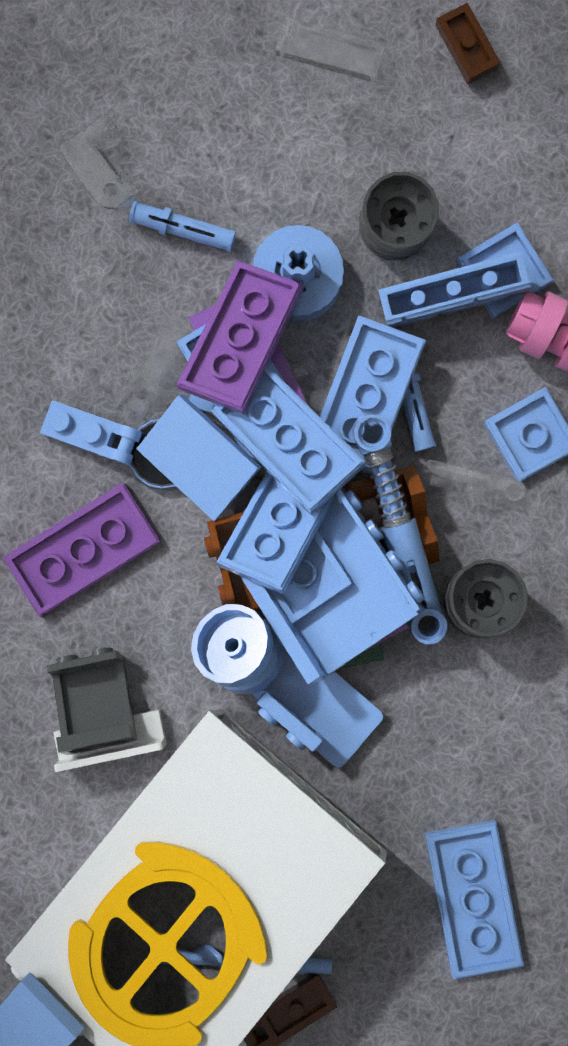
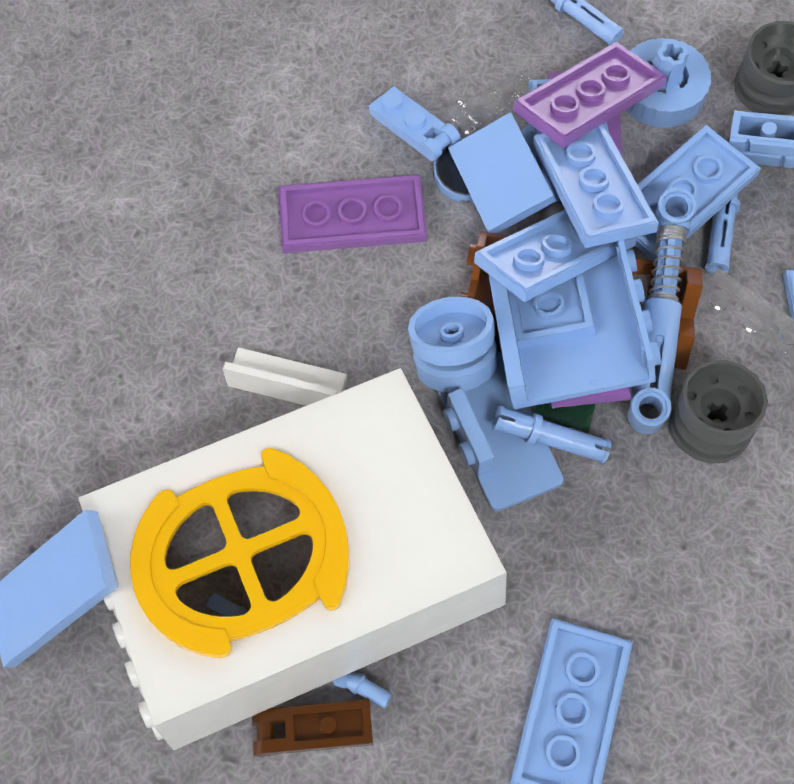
camera: 25 degrees right, 20 degrees down
(92, 701) = (291, 332): dark grey panel -> none
(342, 687) = (536, 429): none -> light blue pin

